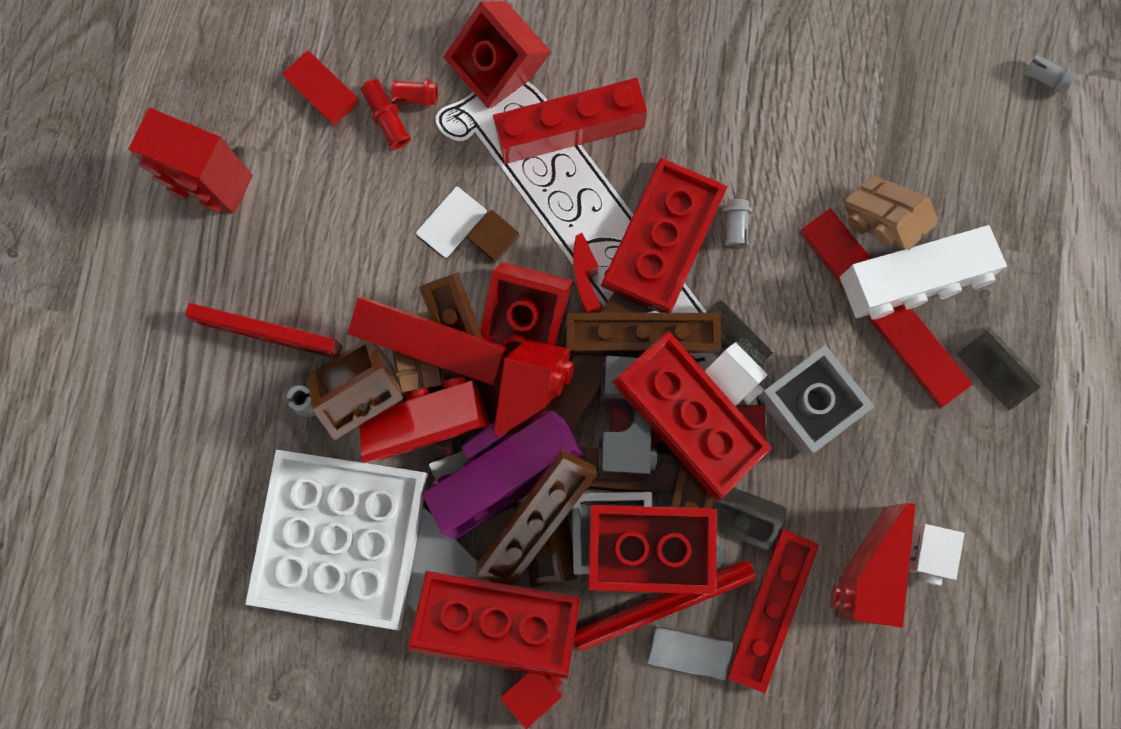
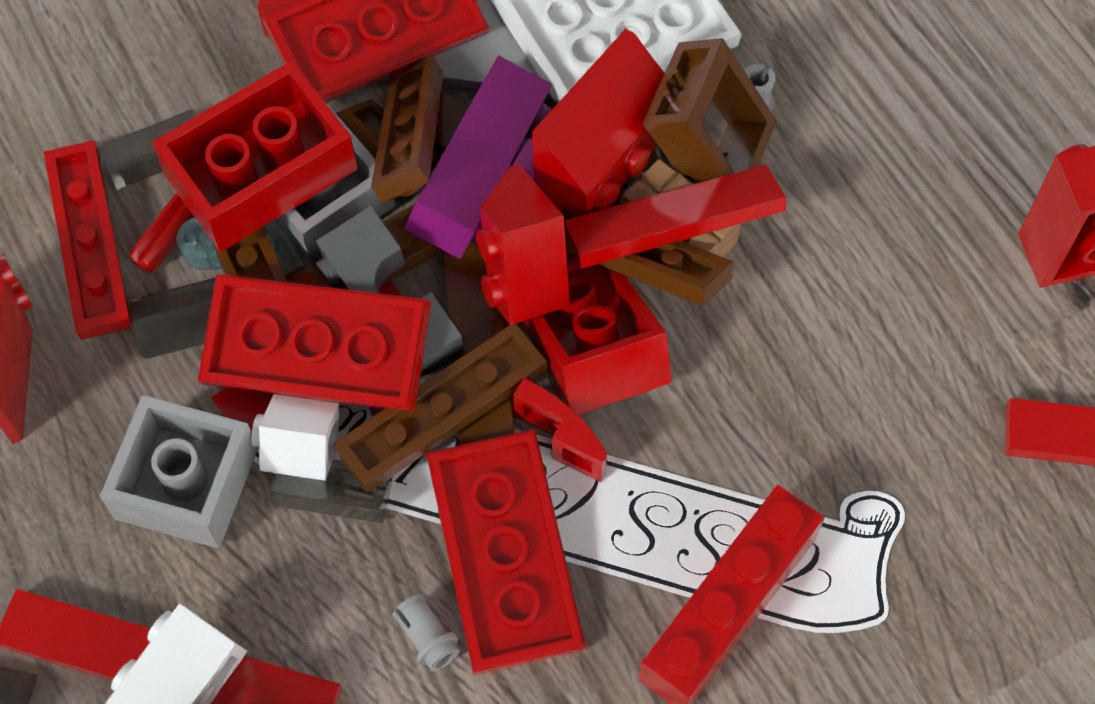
camera: 140 degrees right, 15 degrees down
(263, 331) = (864, 130): red tile -> none
(385, 114) = (960, 455): red axle -> none
(414, 92) = (938, 512): red pin -> none
(451, 222) = (772, 397): white sticker -> none
(493, 236) = (709, 410): reddish brown tile -> none
(496, 52) = (897, 625): red slope -> none

